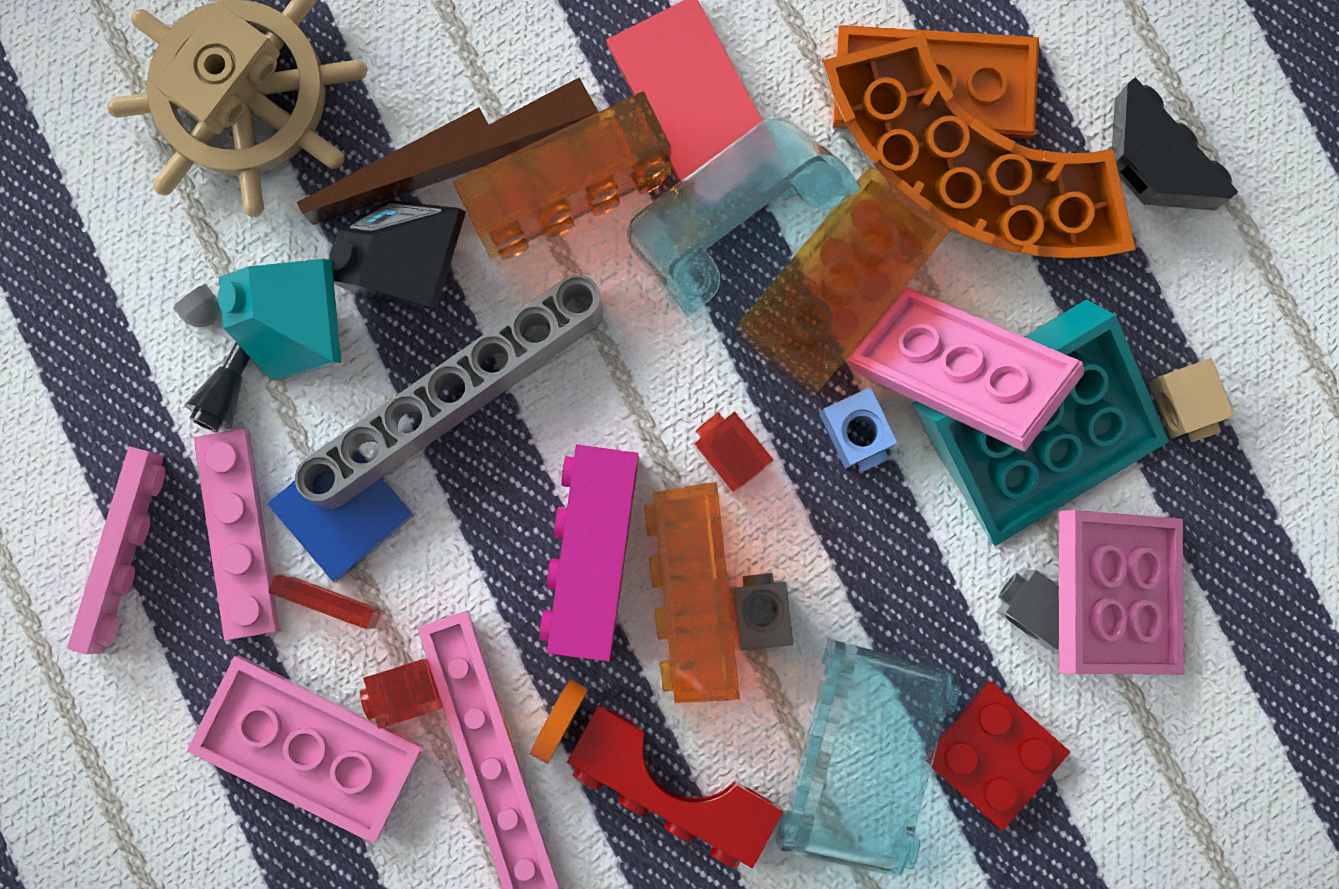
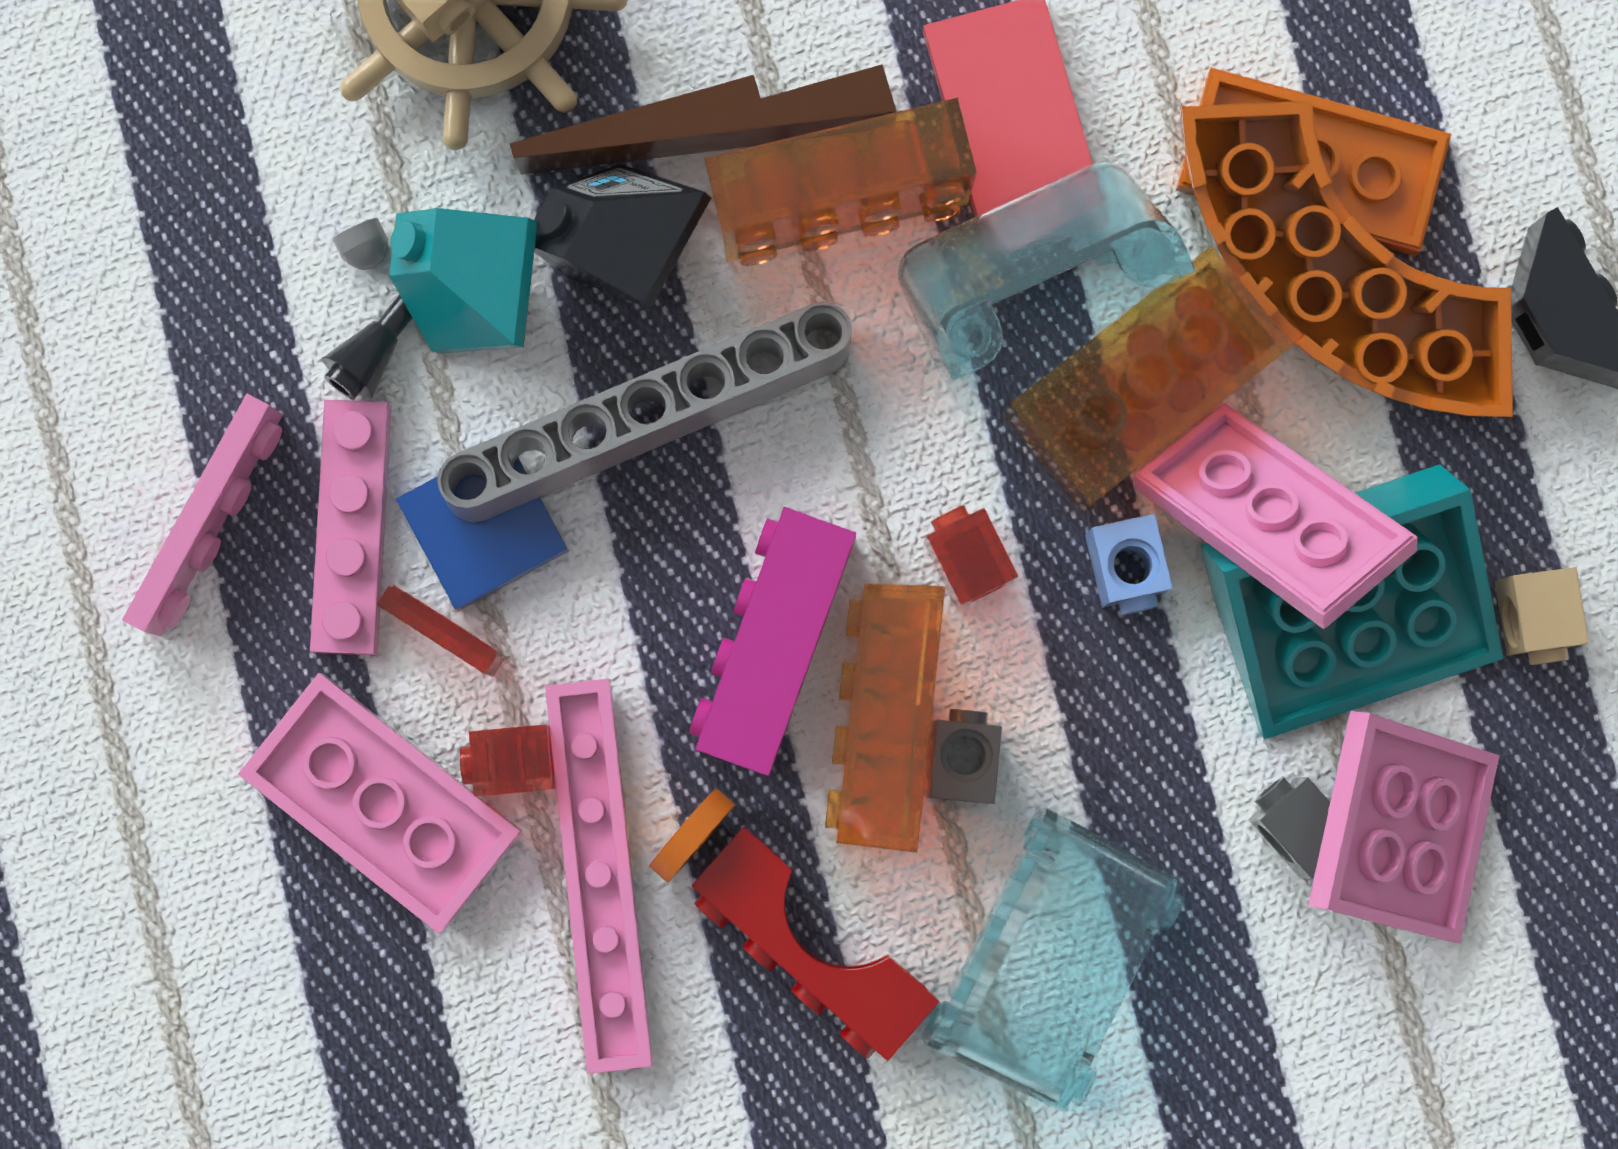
camera: 10 degrees right, 0 degrees up
(997, 755) = (1211, 992): red plate -> none

